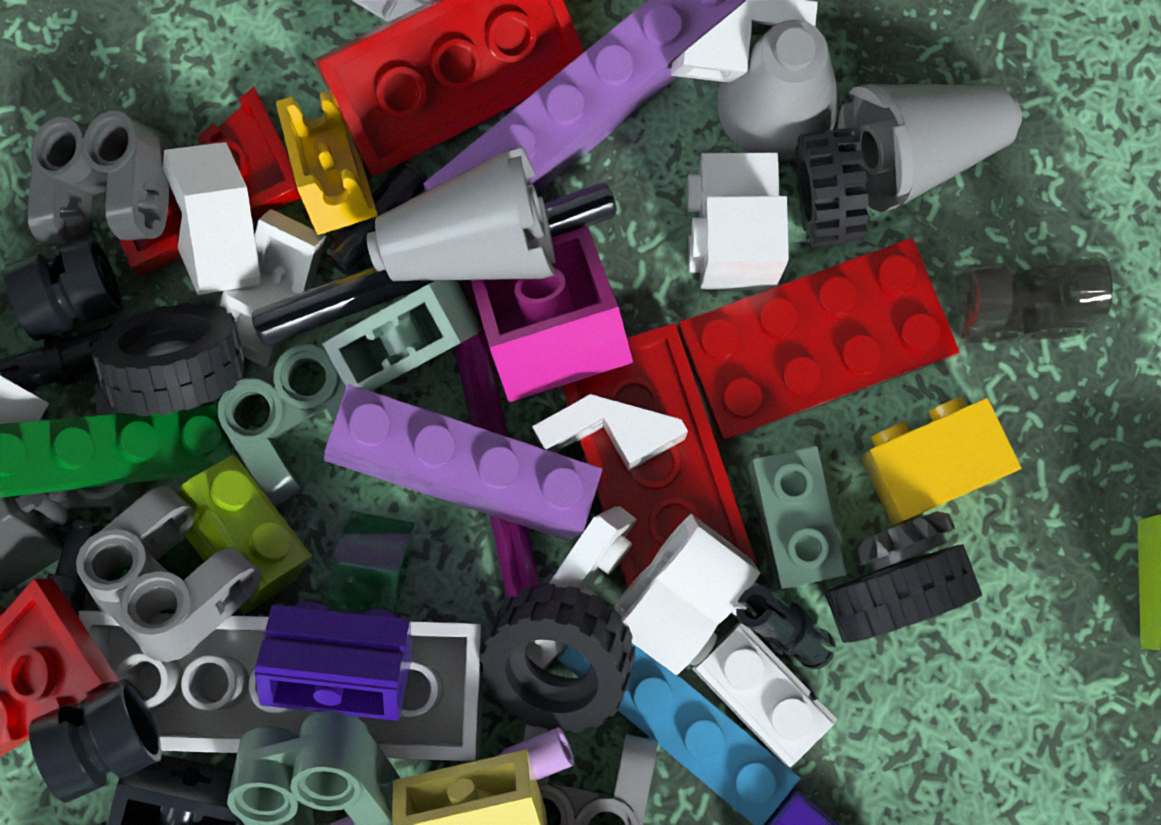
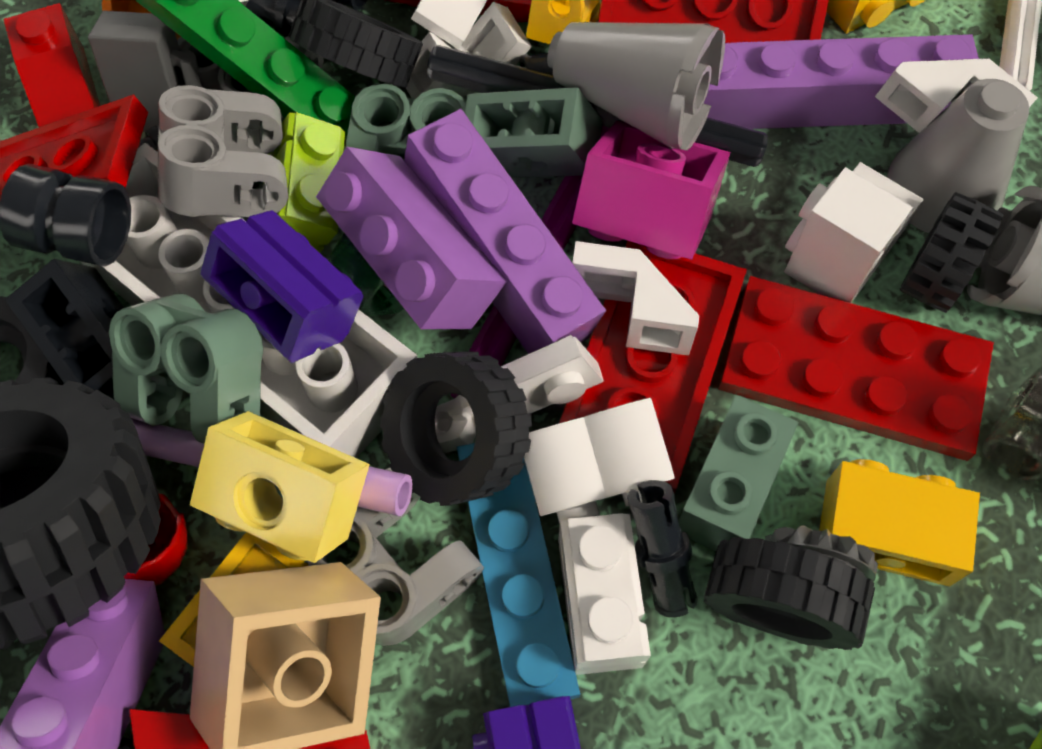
camera: 35 degrees right, 15 degrees down
(393, 530) = (410, 240): none -> medium lavender brick

